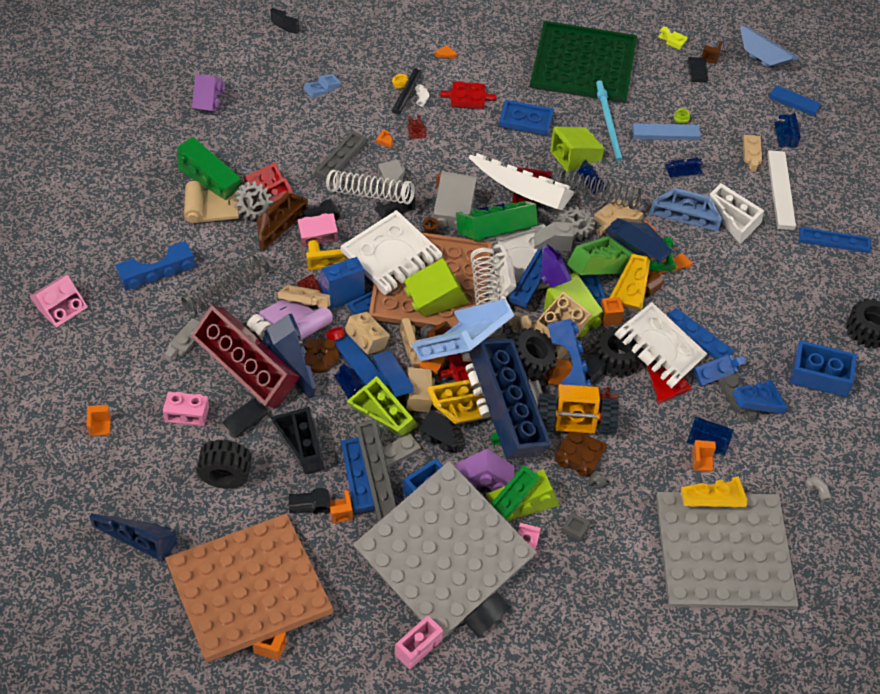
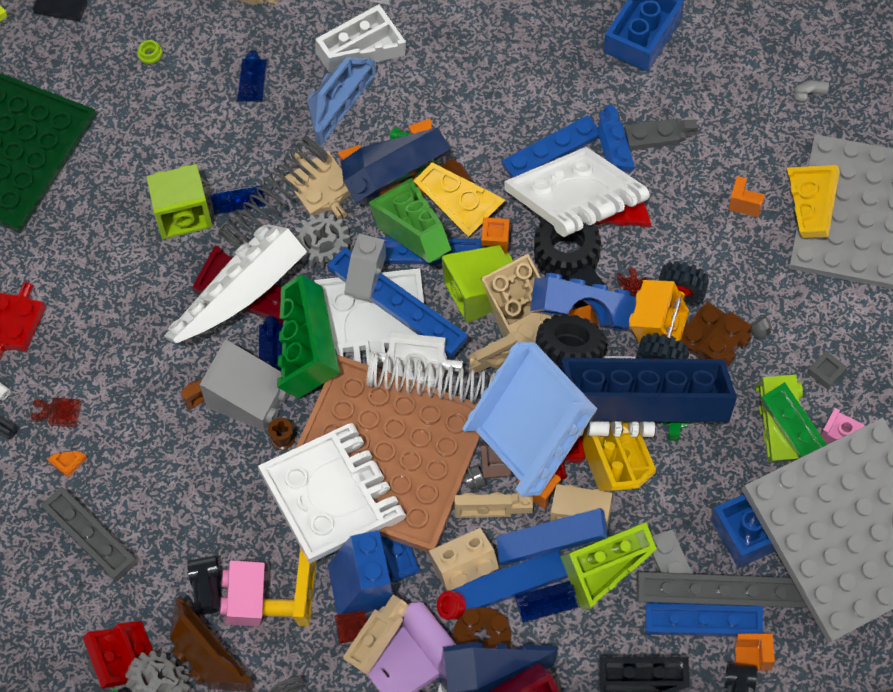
camera: 70 degrees left, 10 degrees up
(387, 209) = (217, 473): black hinge -> none
(391, 170) = (160, 467): light grey slope -> none
(403, 189) = (152, 557): white piece -> none
(435, 289) = (420, 447): lime slope -> none
(438, 429) = (654, 498): black slope -> none
(486, 470) = (739, 450): medium lavender brick -> none
(526, 117) = (88, 252): blue plate -> none
(553, 267) = (436, 278): dark purple wedge -> none
(602, 96) = (82, 138): medium azure bar -> none
(666, 131) = (172, 81): medium blue tile -> none
(709, 431) = (718, 182): clear blue hinge -> none
(760, 397) = (674, 107): blue wing -> none

